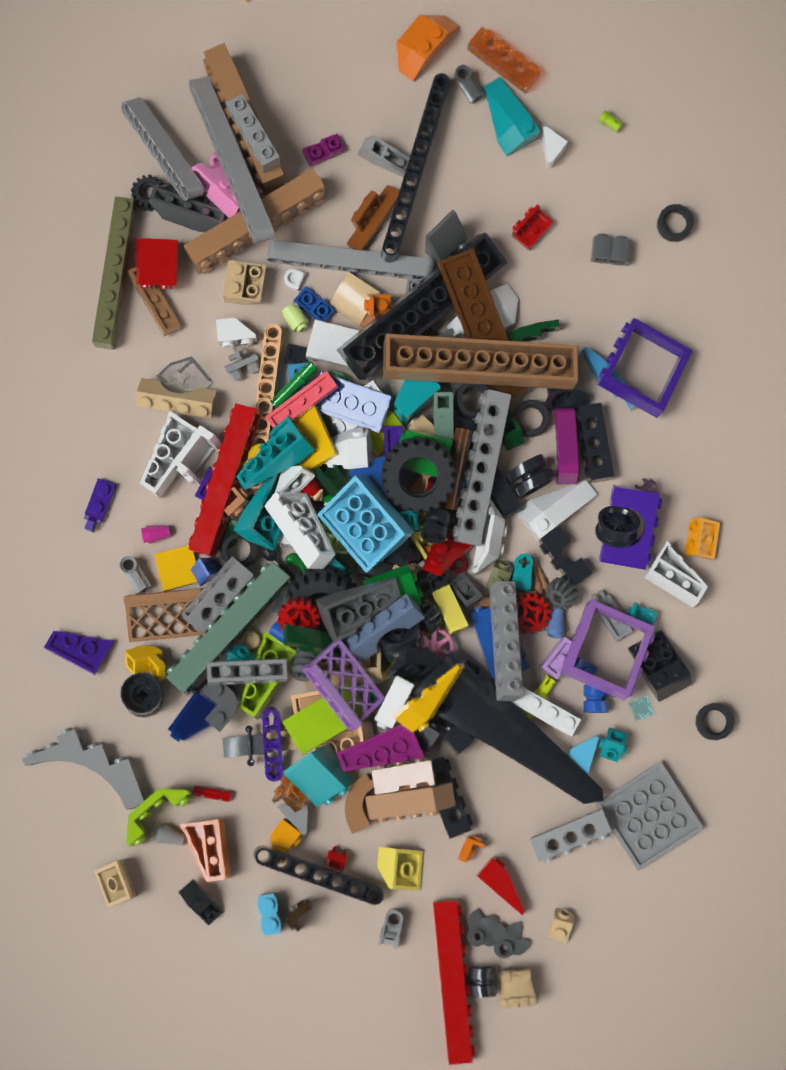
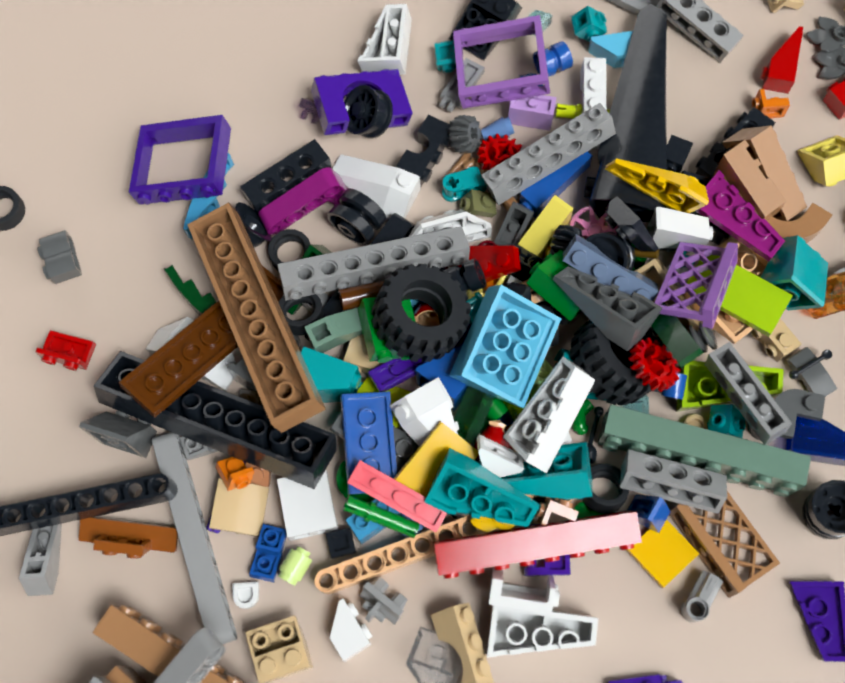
camera: 110 degrees left, 10 degrees down
(146, 659) = (790, 529): yellow brick -> none
(154, 533) = (640, 601): dark pink cone -> none
(272, 744) = (795, 339): dark purple beam -> none
(324, 150) = (63, 641): magenta slope -> none
(702, 538) = (337, 41): light orange bracket -> none

